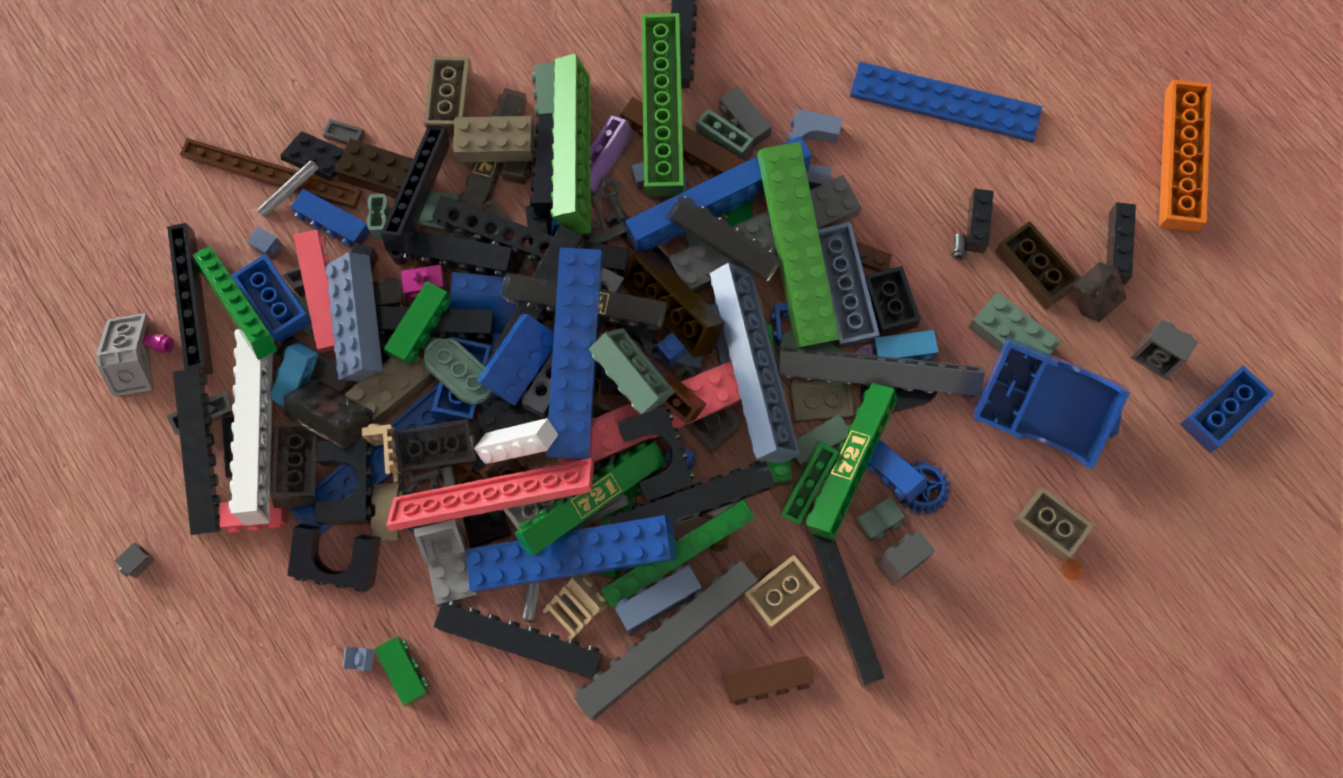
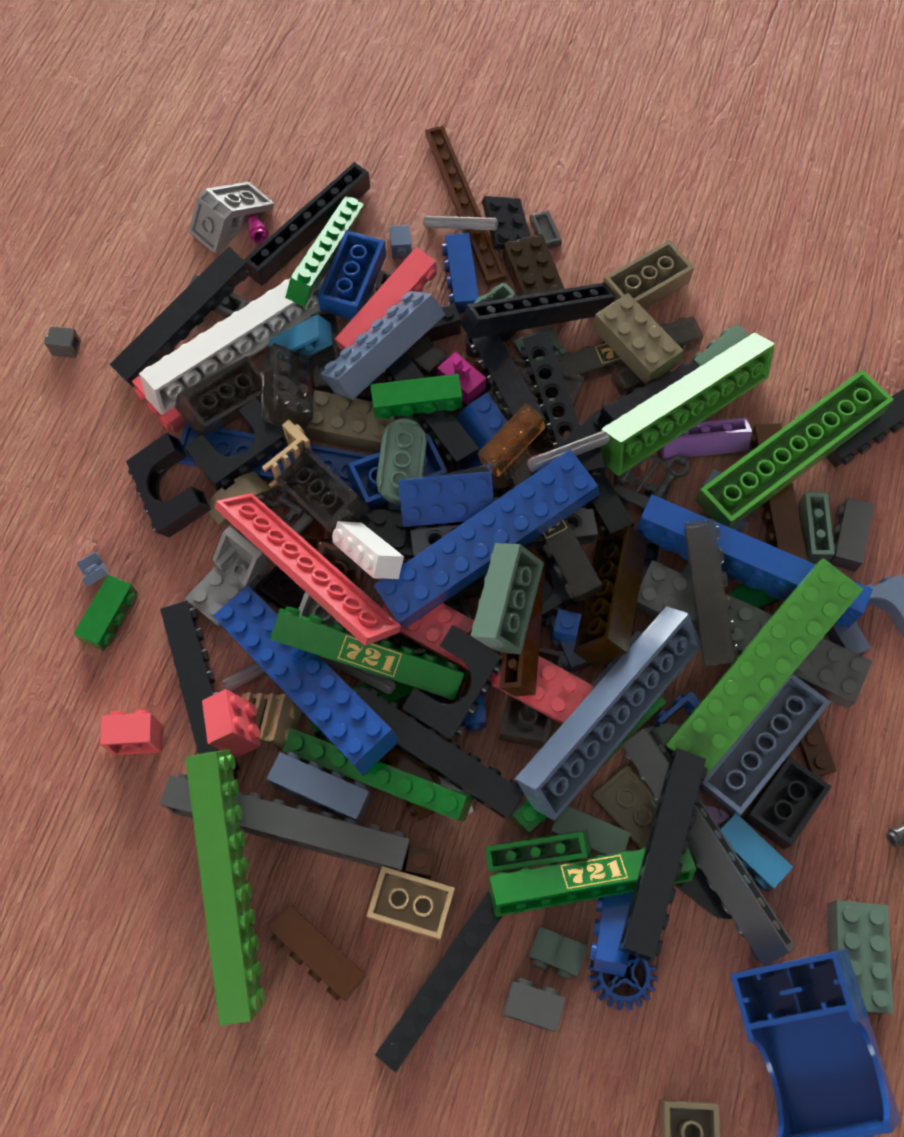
camera: 50 degrees right, 5 degrees down
(515, 709) = (131, 733): none -> coral brick
(516, 281) = (512, 439): none -> clear orange brick
(553, 251) = (577, 447): none -> light grey axle
(566, 629) = (231, 723): none -> coral brick
(682, 707) = (225, 886): none -> bright green brick
(872, 401) = (662, 856): none -> black brick

